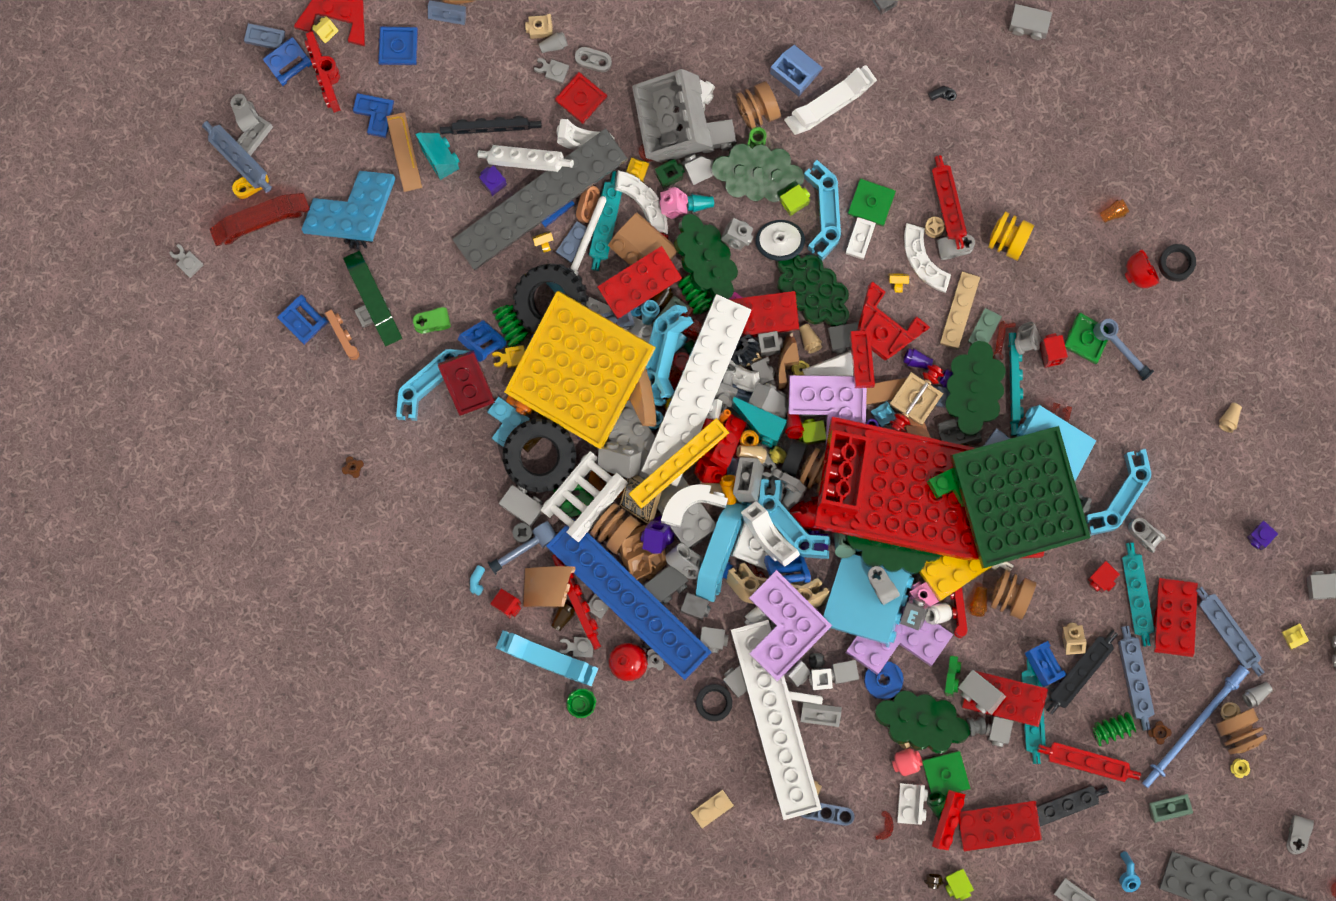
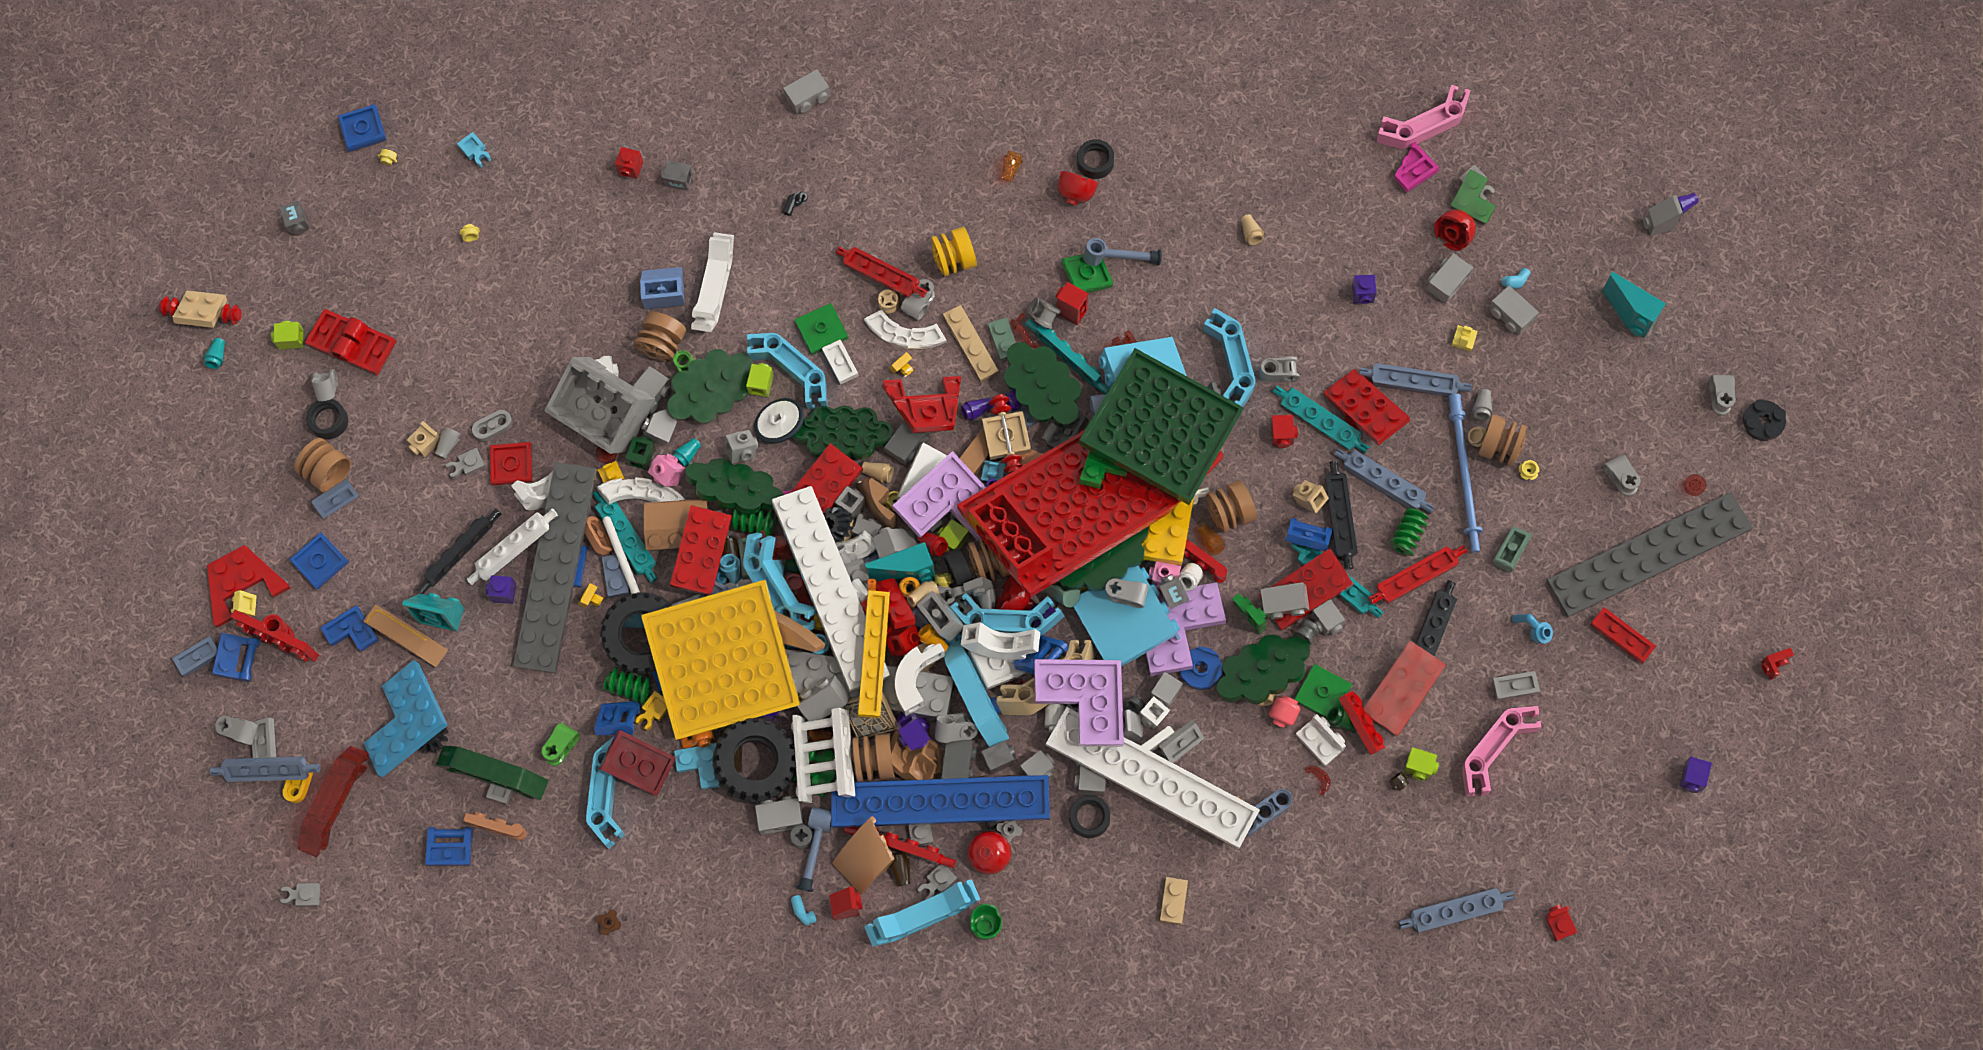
camera: 45 degrees left, 10 degrees down
(862, 359) = (935, 440): red plate -> none
(1159, 727) = (1444, 497): reddish brown plate -> none

